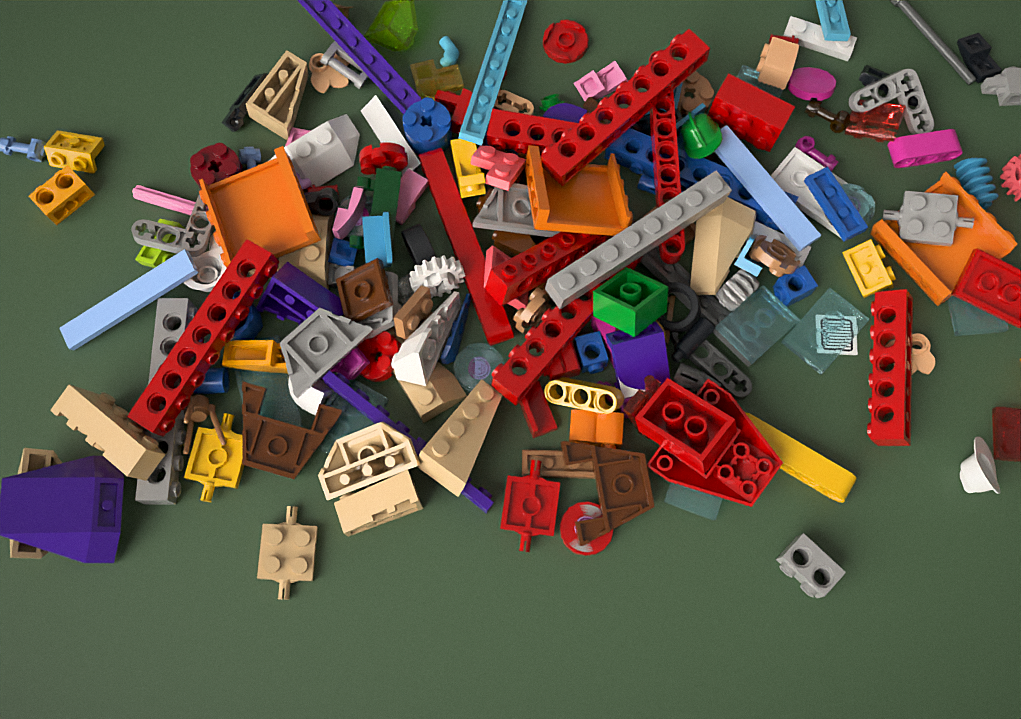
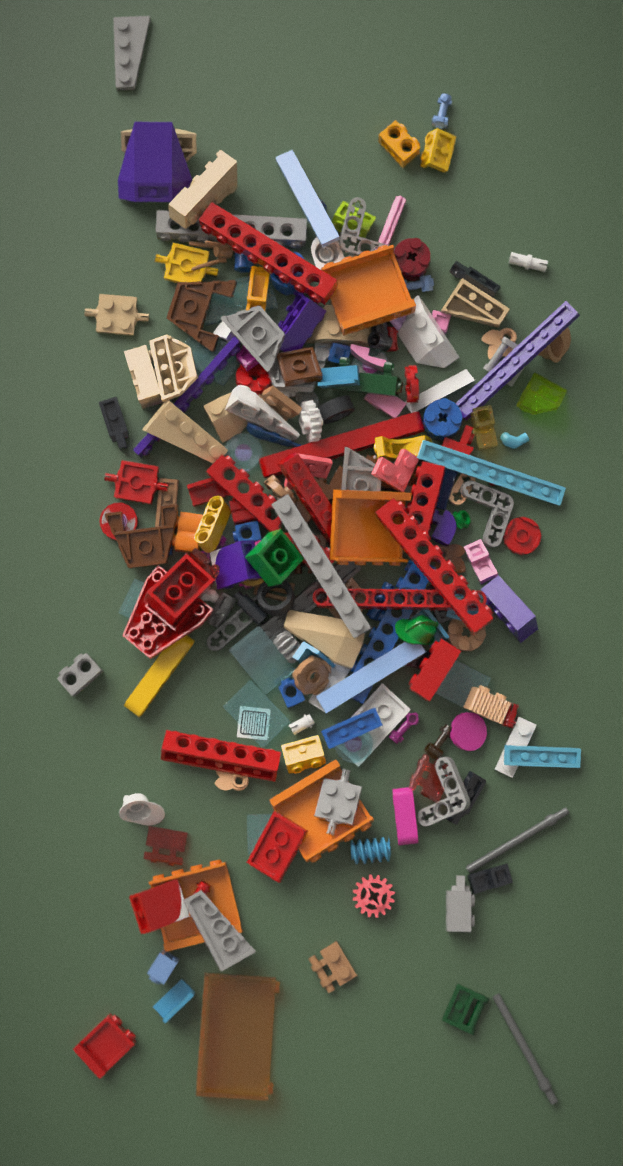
camera: 90 degrees right, 10 degrees up
(225, 46) = (528, 262): none -> white pin
(444, 543) = (114, 421): none -> black hinge
(536, 65) = (497, 509): none -> light grey beam
(655, 37) = (510, 609): none -> wedge
(831, 273) = (302, 724): none -> white pin

